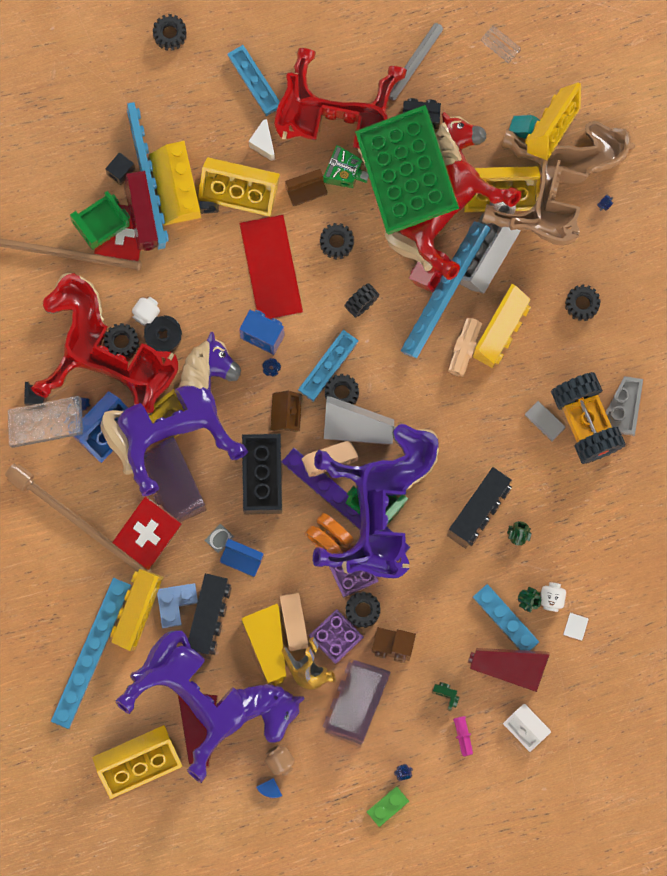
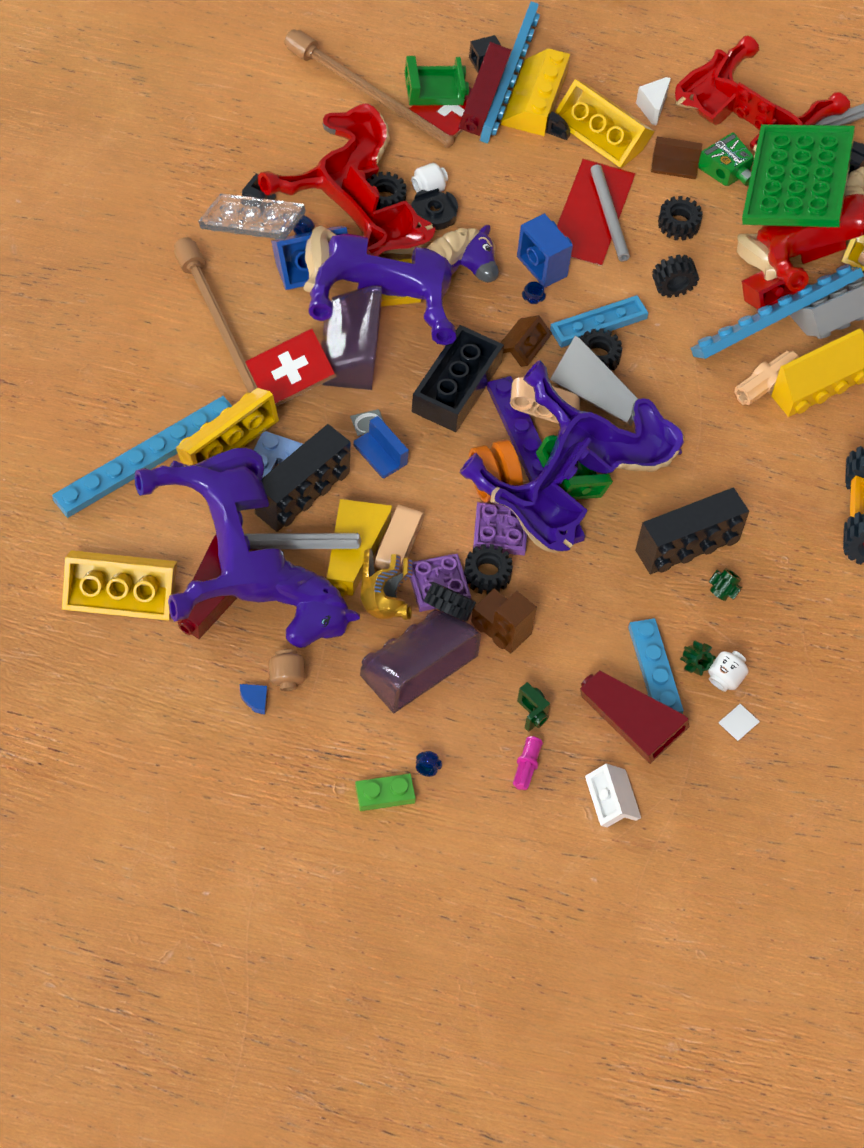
camera: 25 degrees right, 20 degrees down
(234, 664) = (304, 541): none -> light grey axle
(254, 80) = (677, 46): dark azure plate -> none
(285, 264) = (610, 213): none -> light grey piece
(356, 655) = (449, 601): none -> black tyre
(544, 421) = (821, 494): light grey tile -> none

